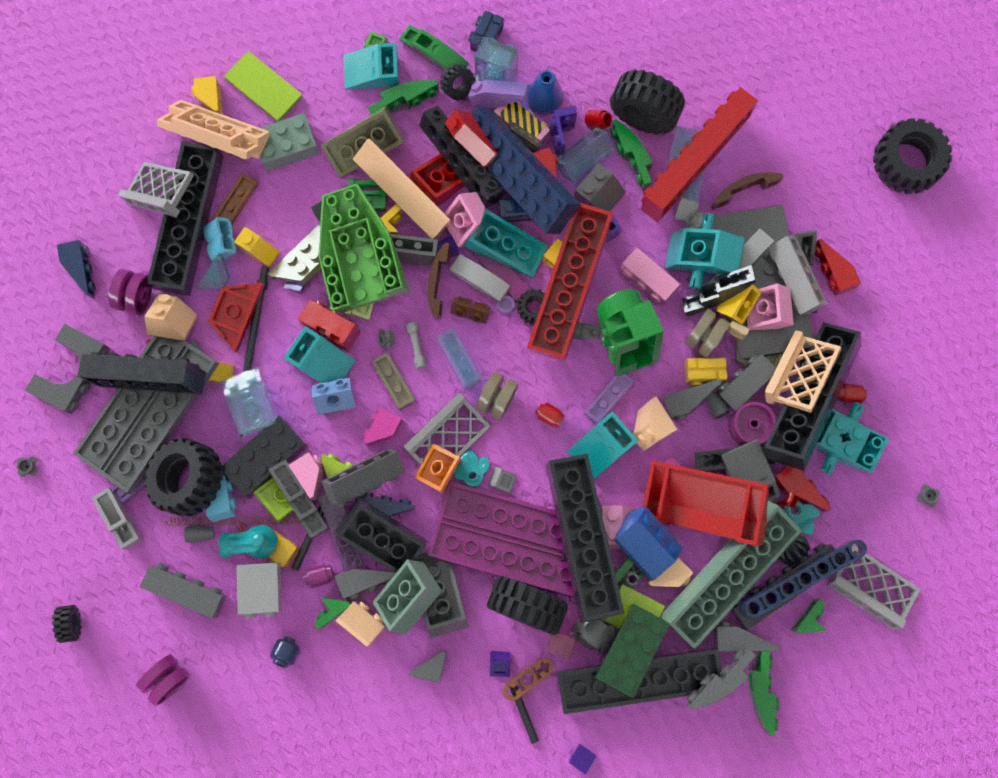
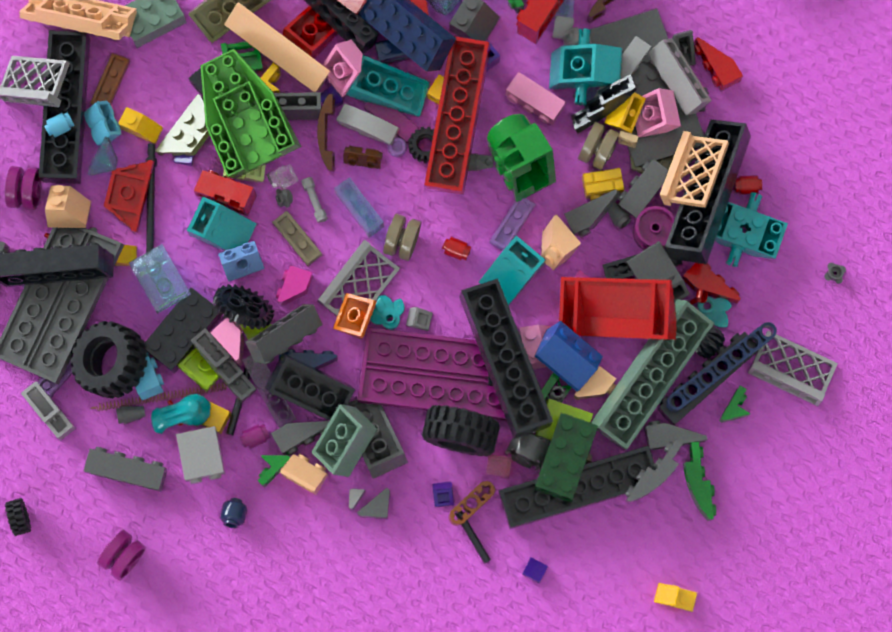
camera: 10 degrees left, 0 degrees up
(174, 234) = (59, 124): none -> medium azure brick
(327, 443) = (243, 306): none -> black gear
(388, 318) = (282, 177): none -> clear brick
(409, 654) = (354, 497): none -> light grey slope

